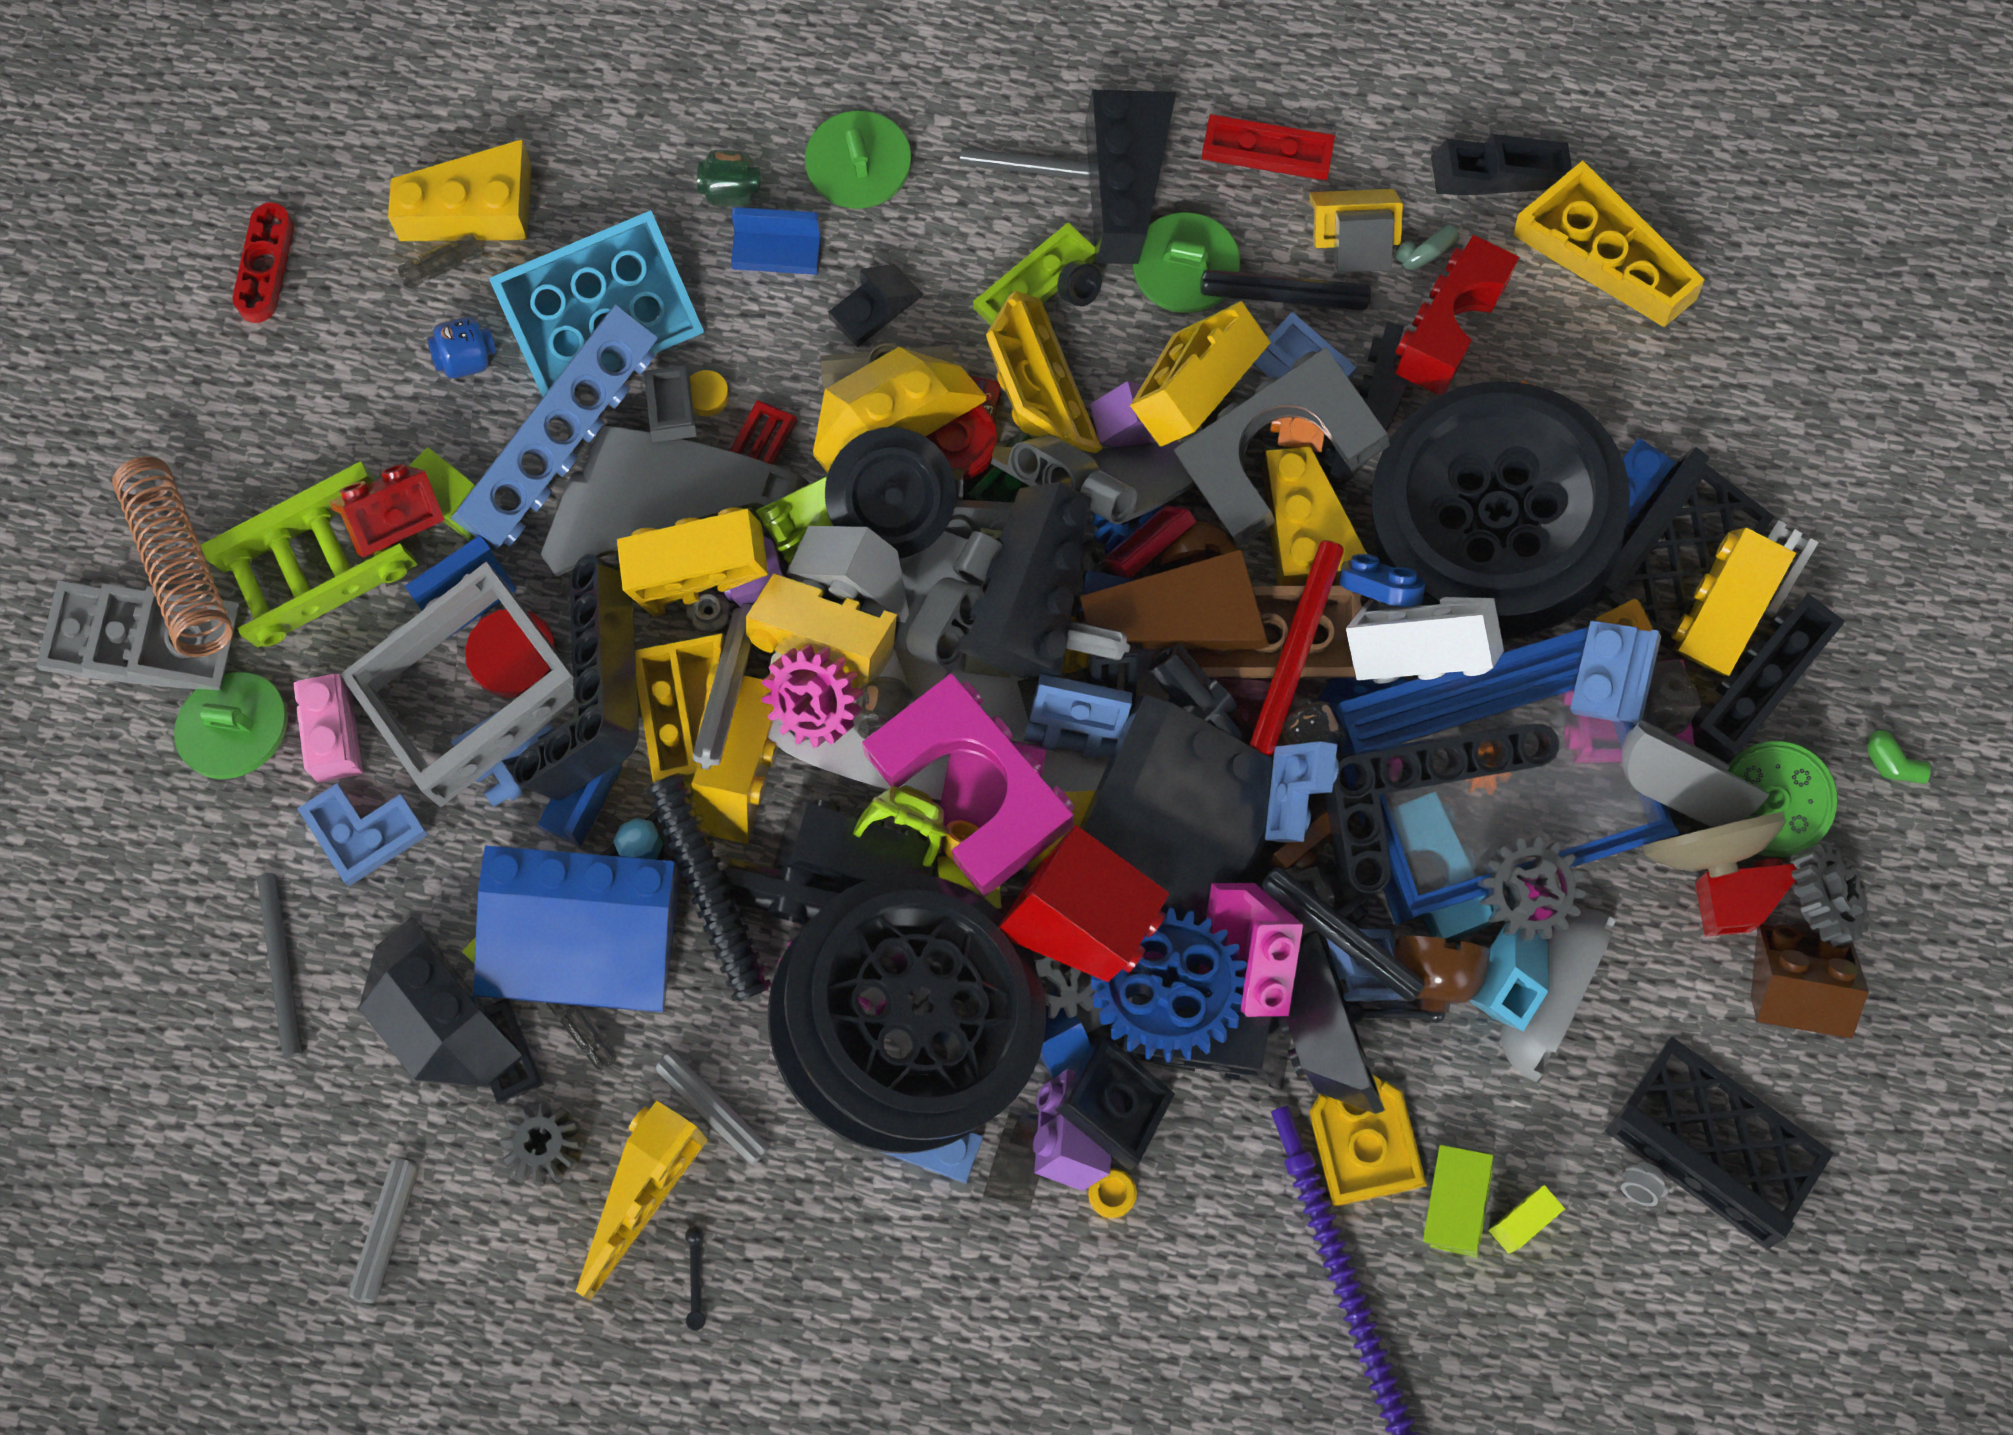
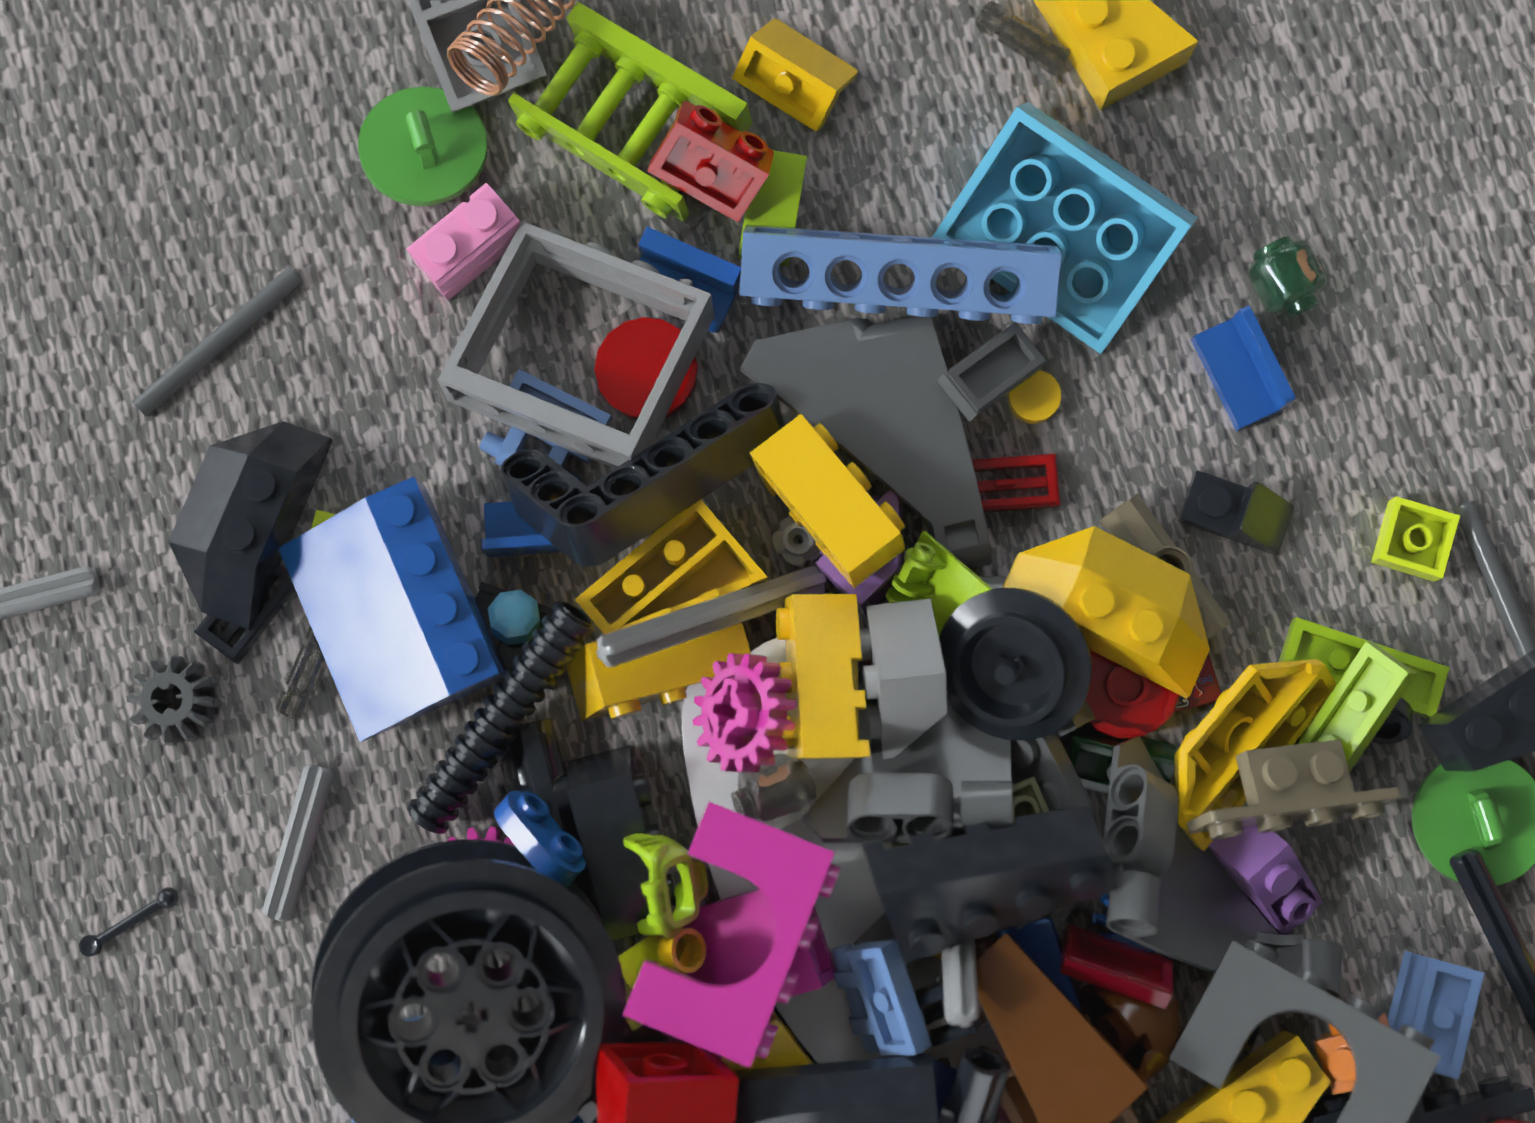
camera: 65 degrees right, 10 degrees up
(357, 843) = (371, 341): medium blue plate -> none
(359, 430) = (793, 73): none -> yellow panel
(460, 347) = (936, 120): blue head -> none
(648, 1170) = (199, 819): yellow wedge -> none
(797, 903) = (539, 837): none -> blue plate
(858, 159) = (1393, 398): bright green shield -> none
(965, 198) = (1415, 539): none -> neon yellow piece
(1066, 304) = (1360, 701): none -> lime plate
(1090, 357) = (1294, 784): none -> dark tan bracket
(1198, 372) = (1343, 915): yellow wedge -> none

